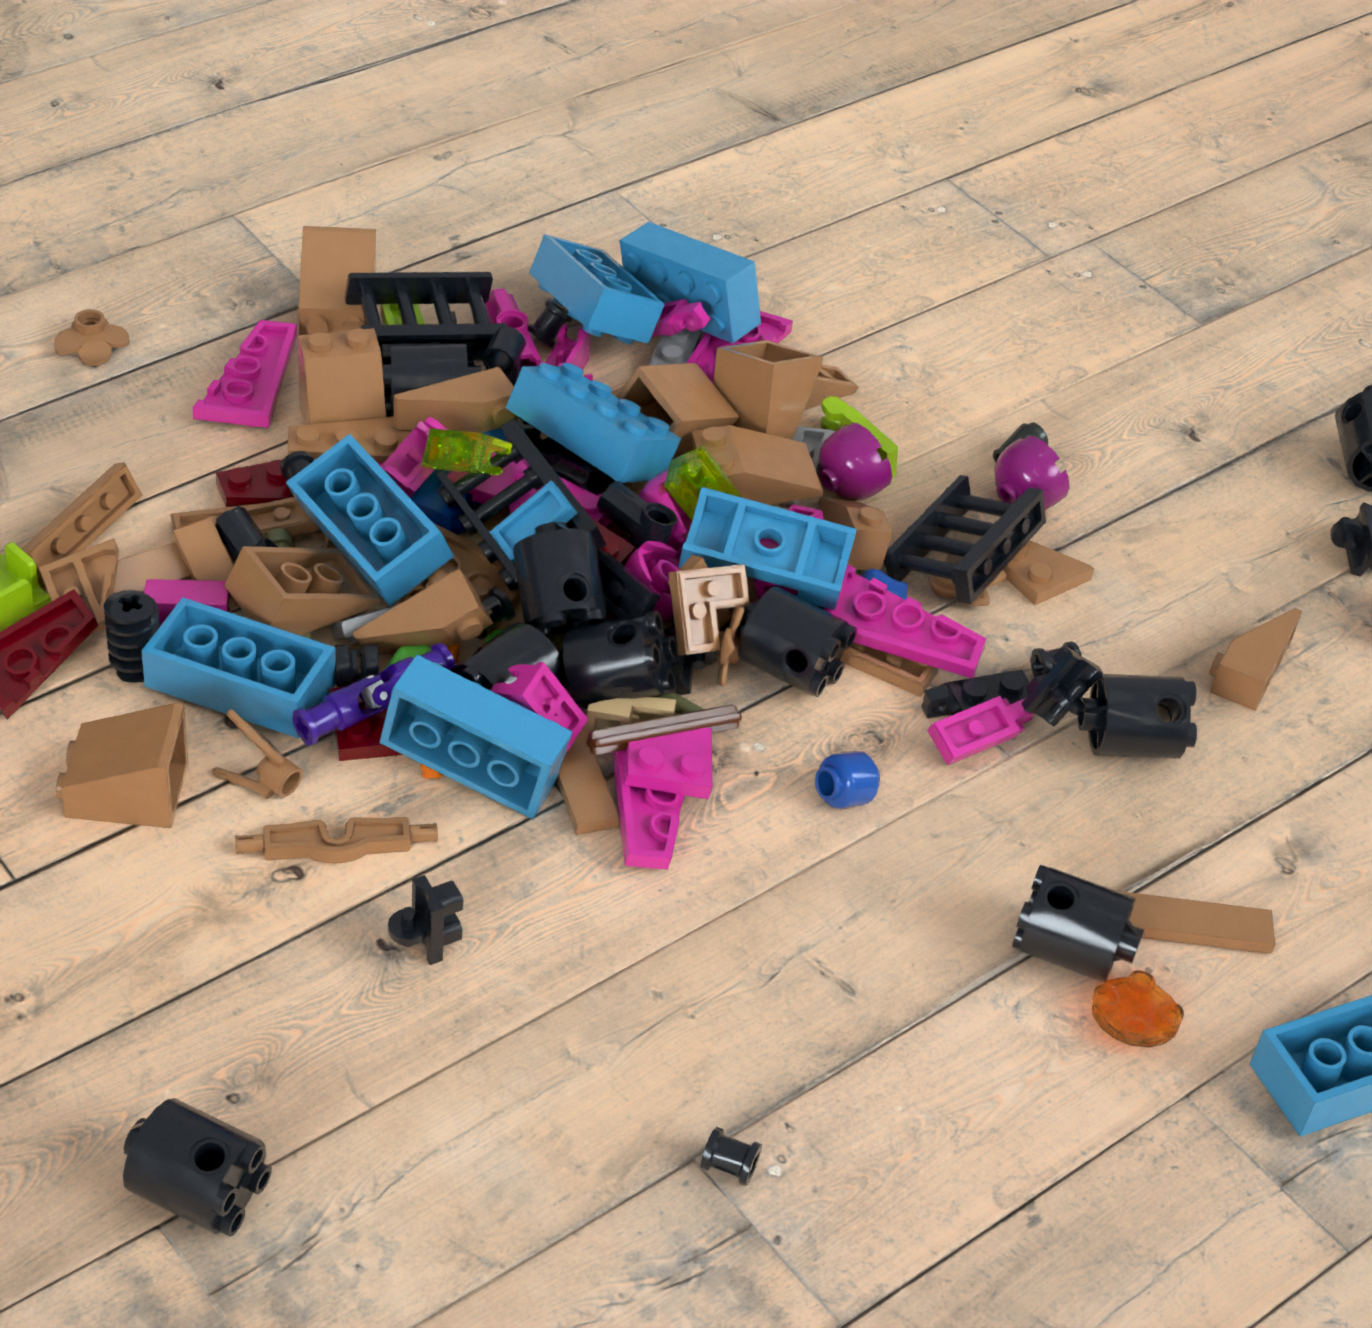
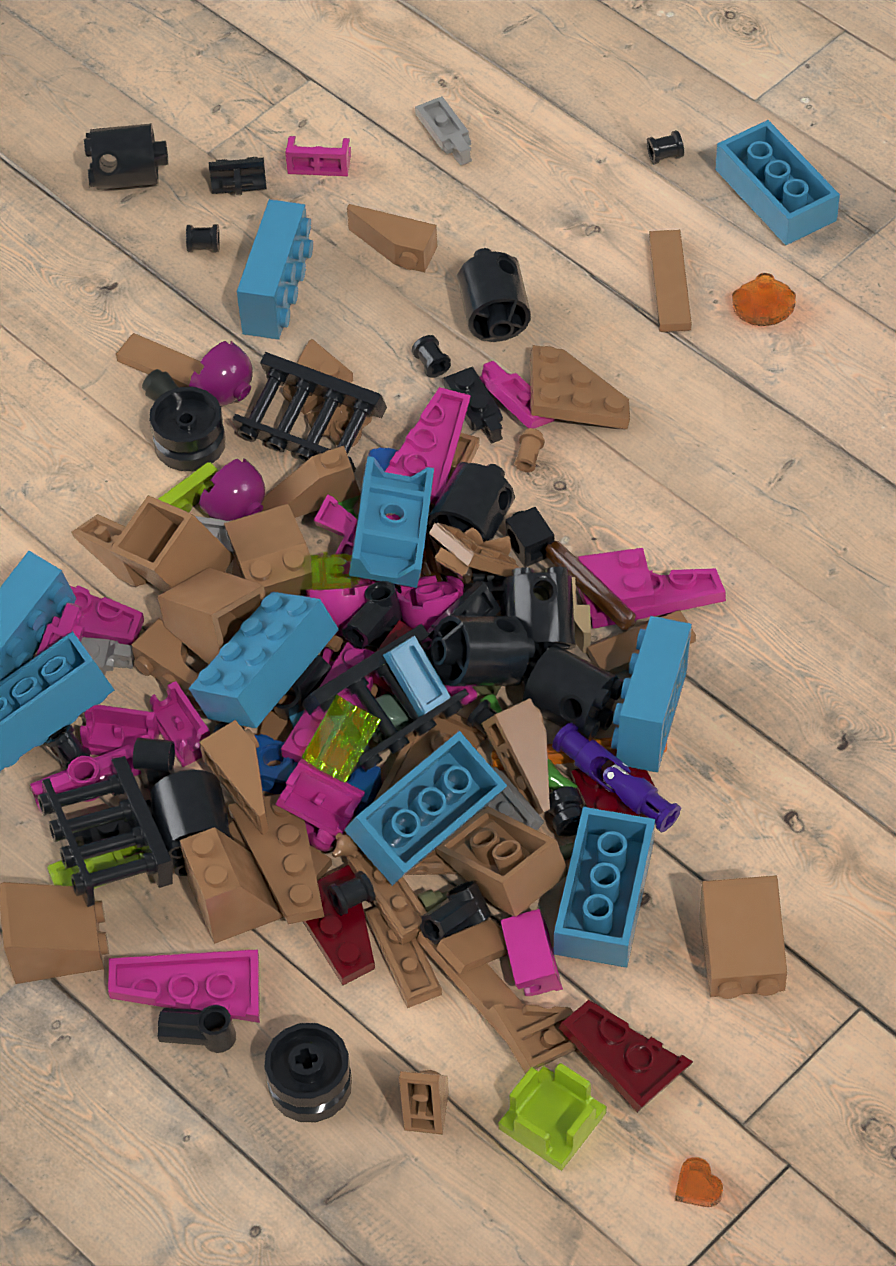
camera: 90 degrees left, 10 degrees up
(37, 475) = (424, 1100): none -> medium nougat slope
(85, 517) = (443, 1064): medium nougat tile -> none
(91, 338) = (161, 1143): medium nougat plate -> none
(112, 425) = (308, 1072): none -> black wheel
(129, 624) = (595, 968): black piece -> none
(198, 370) = (195, 1027): none -> black piece
(275, 770) = (701, 843): medium nougat plant -> none
(313, 841) = (761, 807): medium nougat piece -> none
(429, 919) = (837, 698): black hips -> none
(544, 695) = (616, 646): dark pink hinge -> none
(759, 698) = (529, 535): none -> black brick
(847, 779) = (600, 471): blue head -> none
(897, 727) = (531, 442): none -> medium nougat pin
(953, 441) = (187, 428): none -> black wheel
(986, 778) = (573, 392): none -> medium nougat plate
(1062, 687) = (482, 322): black hips -> none
(1077, 924) = (714, 324): black cylinder -> none
(1079, 446) = (148, 356): none -> medium nougat tile
(1192, 533) = (274, 269): none -> dark azure brick
(1262, 503) = (203, 238): none -> black bush

